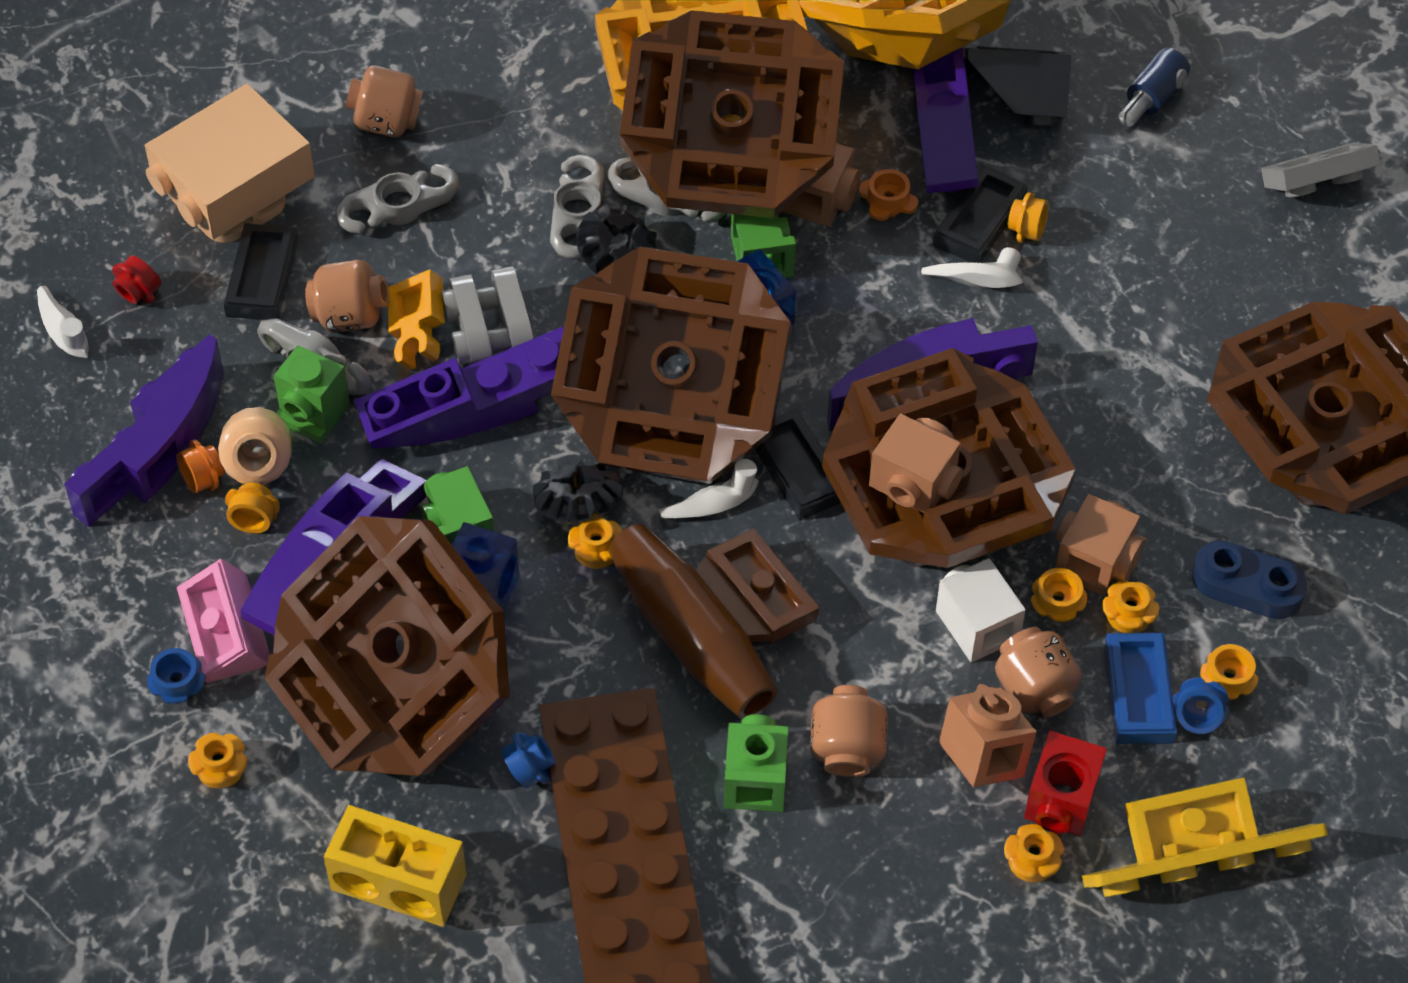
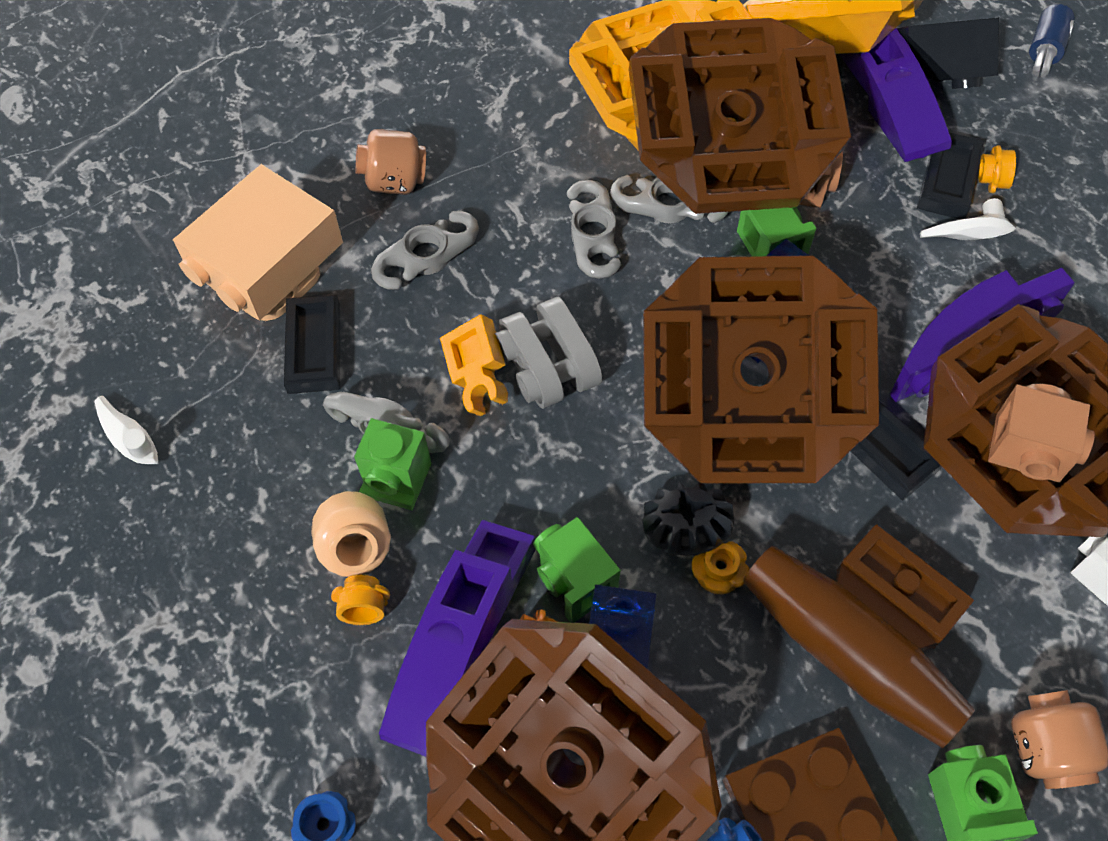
camera: 10 degrees left, 5 degrees up
(135, 280) = (191, 375): red plate -> none
(144, 455) = (254, 524): dark purple slope -> none
(200, 466) = (297, 564): orange plate -> none
(213, 616) = (347, 728): bright pink slope -> none
(346, 296) = (403, 354): nougat head -> none
(461, 402) = (547, 439): dark purple slope -> none
(601, 226) = (624, 253): black gear -> none
(719, 496) = (819, 496): white bar -> none
(888, 194) = (867, 169): orange plate -> none

